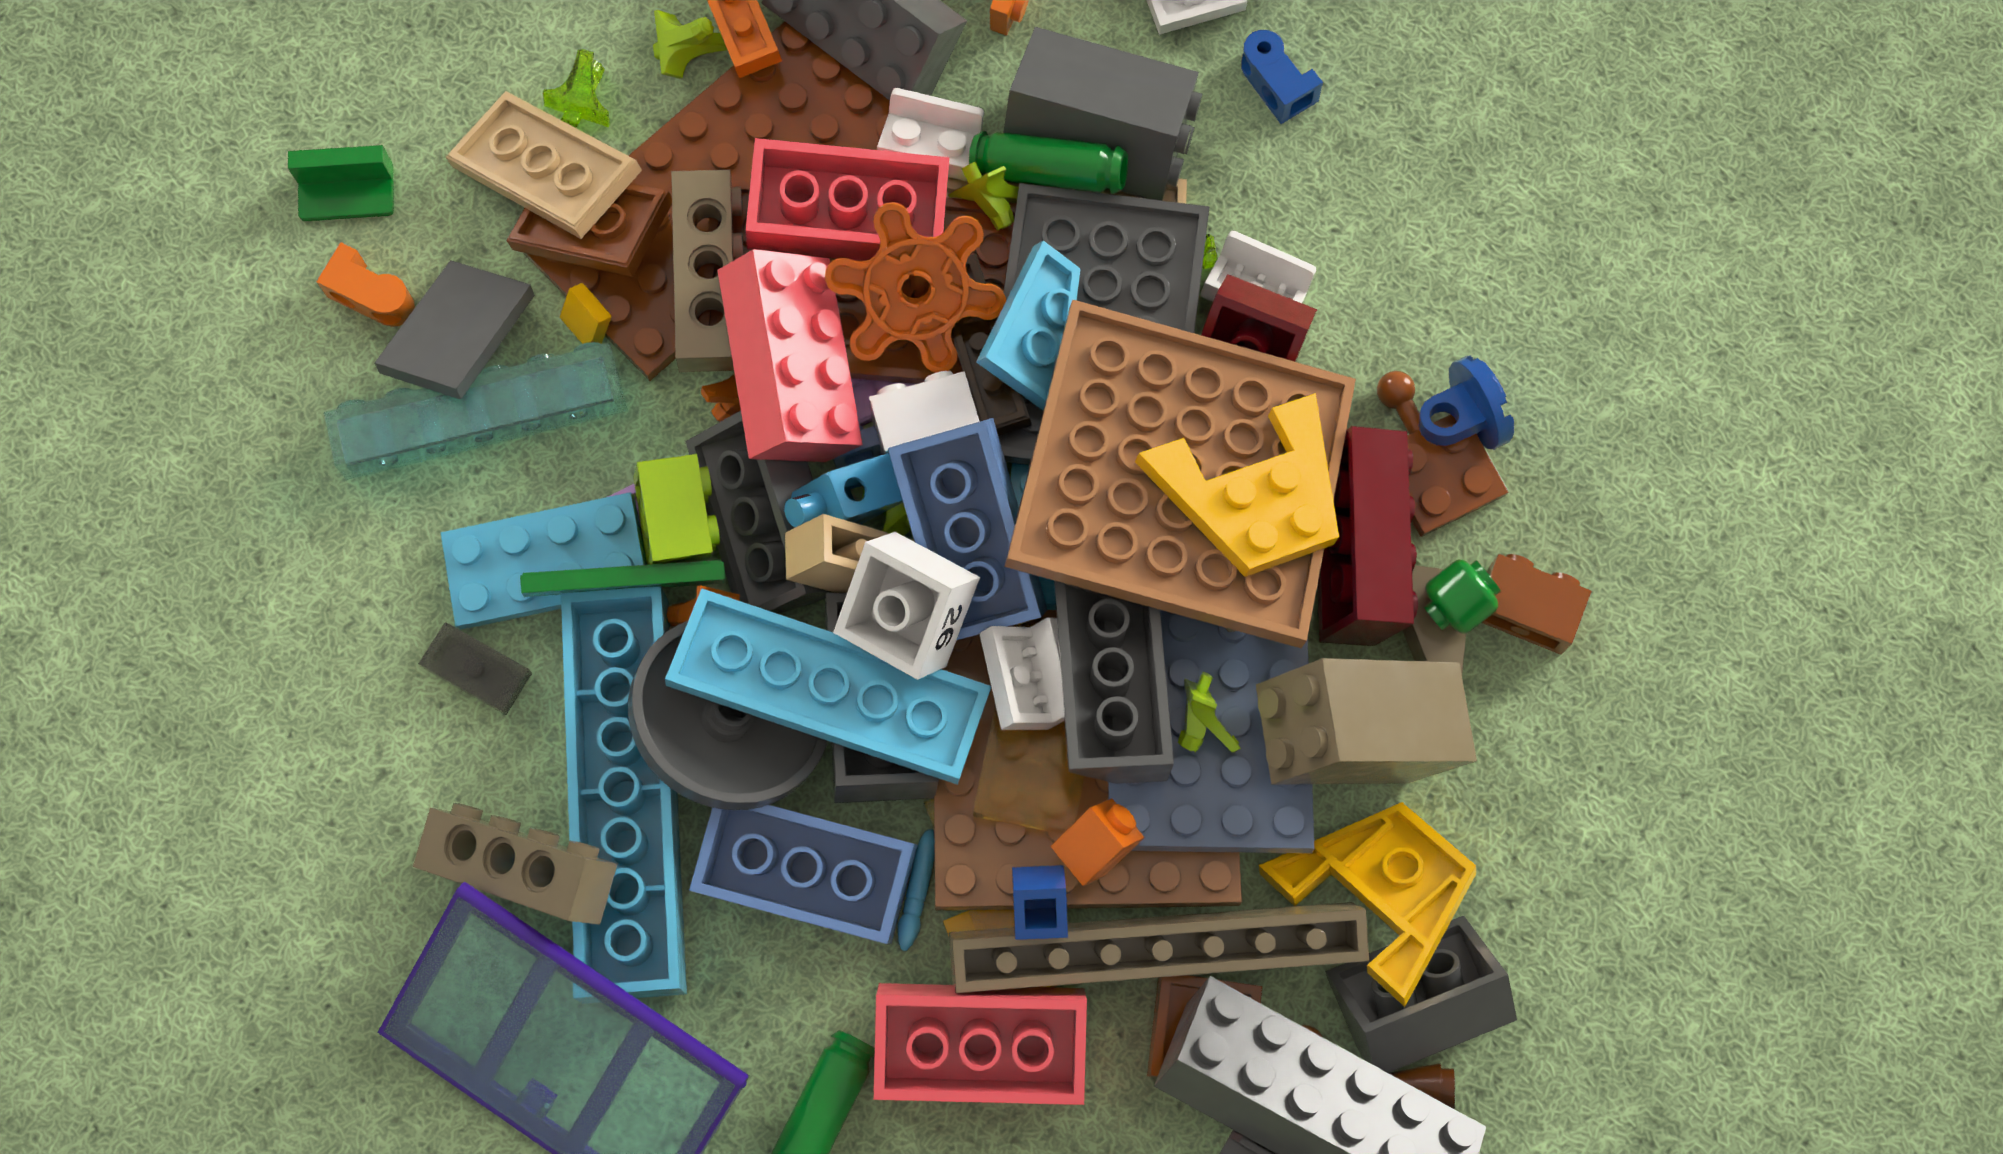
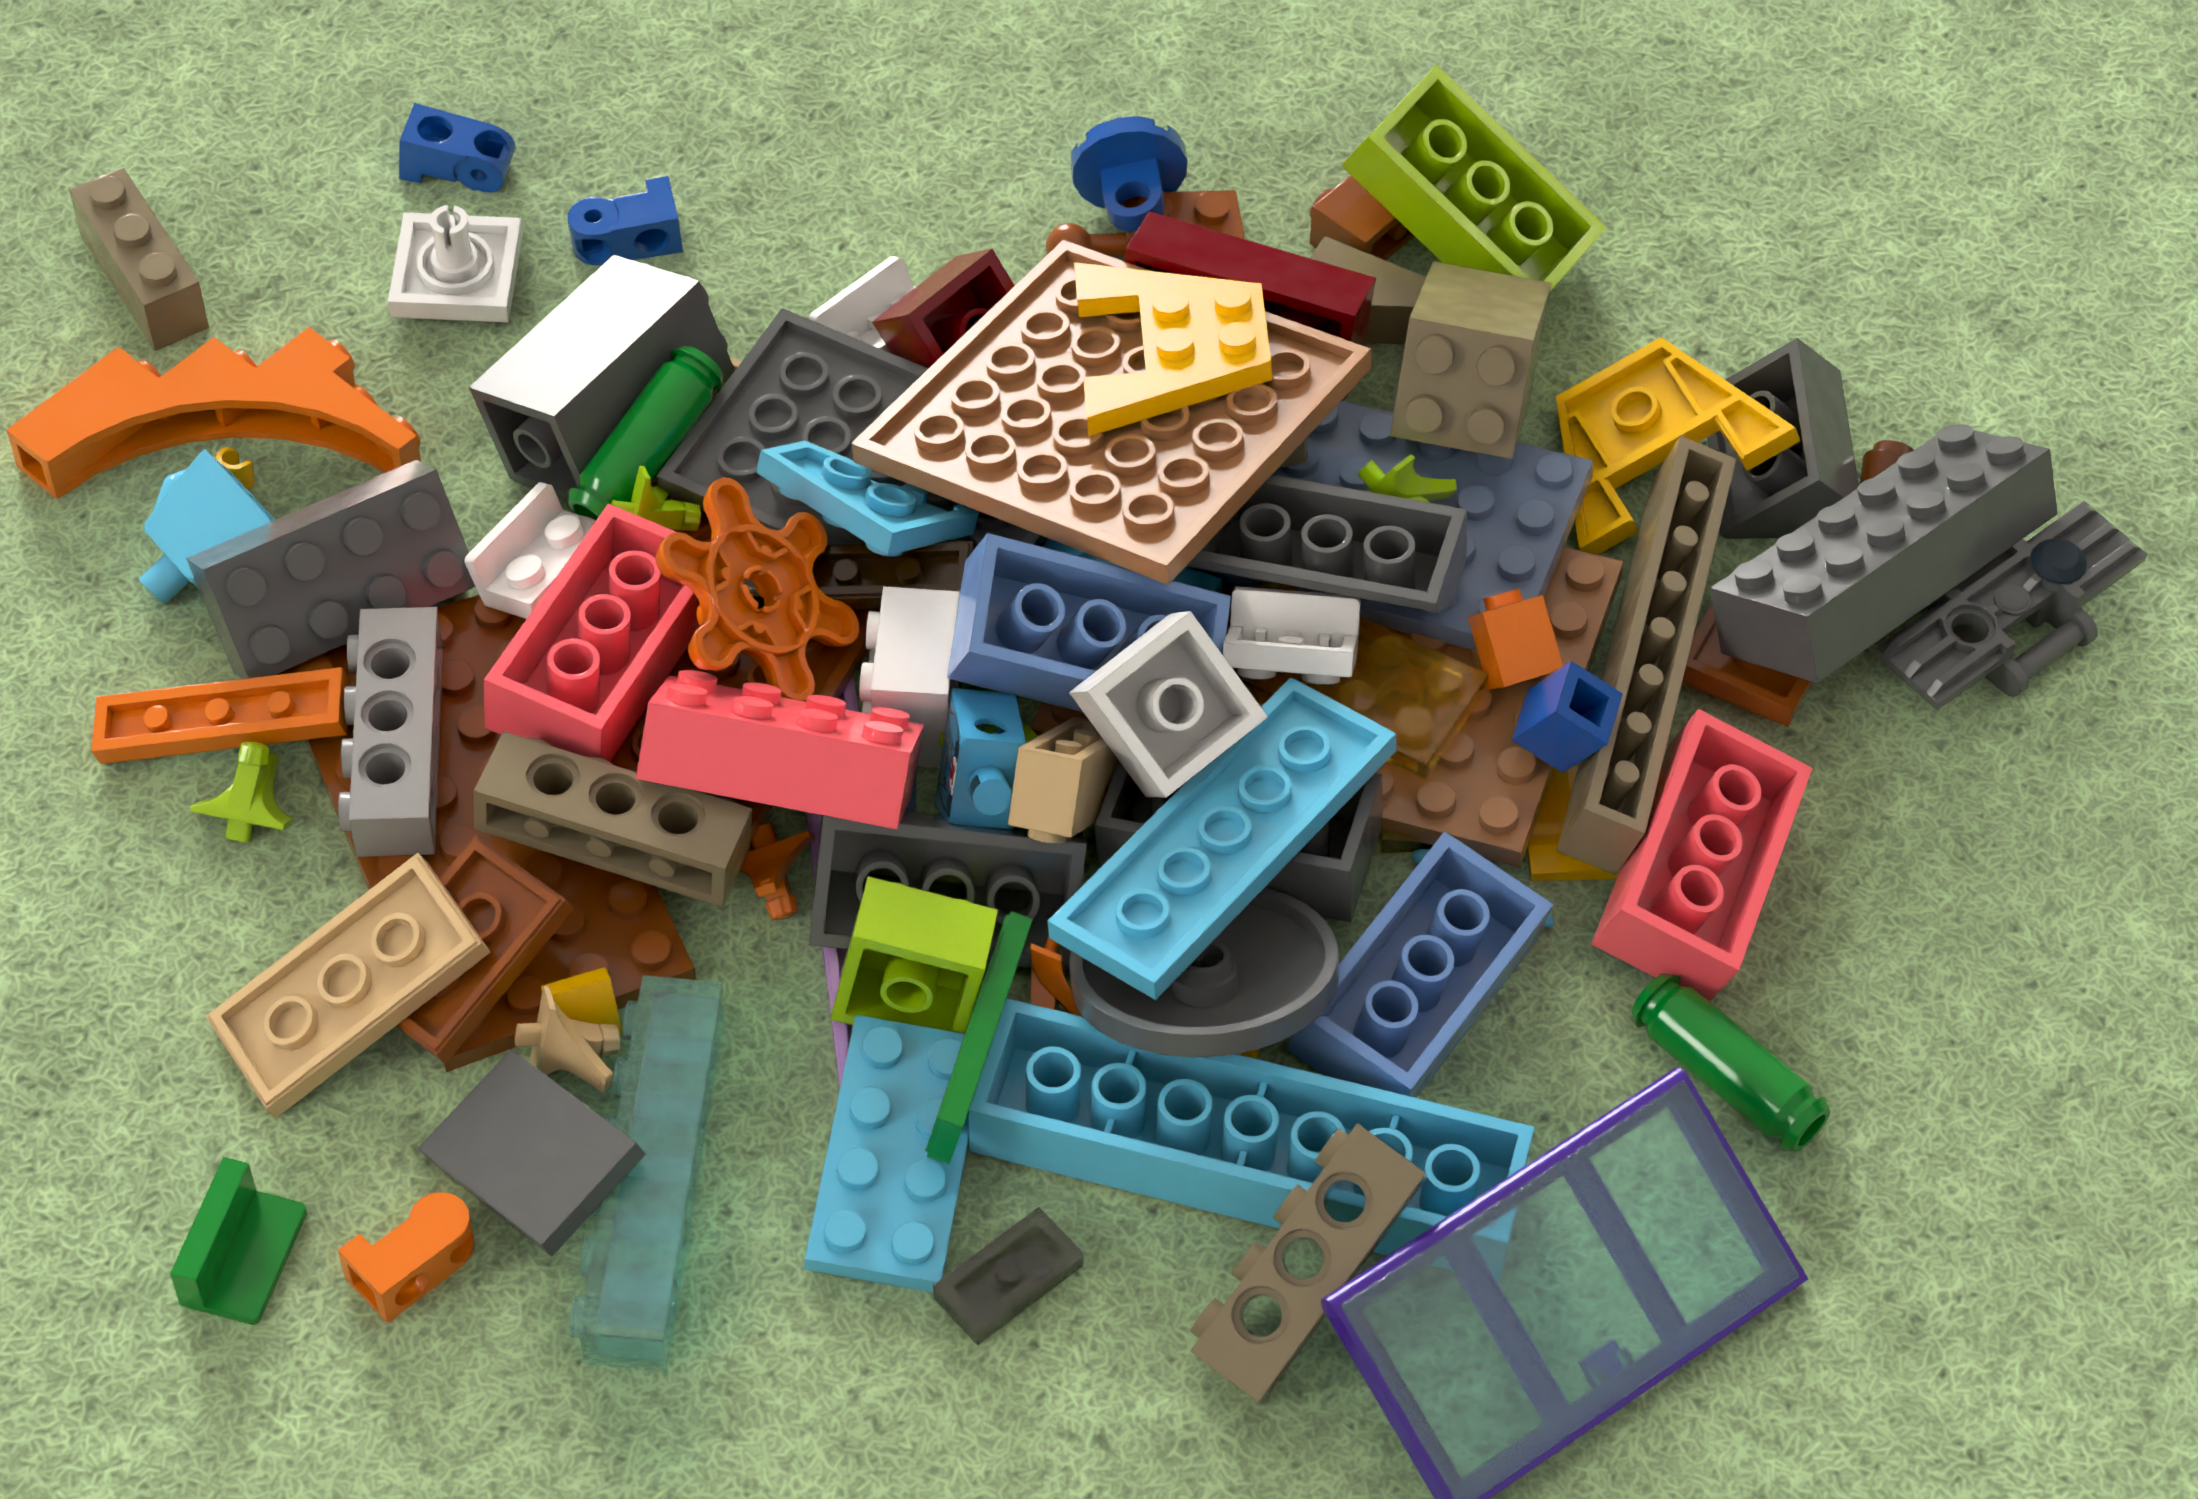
camera: 70 degrees left, 20 degrees down
(551, 319) = (569, 1044): none -> tan piece
(577, 94) = (261, 929): clear neon green piece -> none
(736, 127) = (400, 691): none -> light grey brick
(1461, 596) = (1357, 234): green head -> none
(1550, 673) = (1471, 187): none -> lime brick

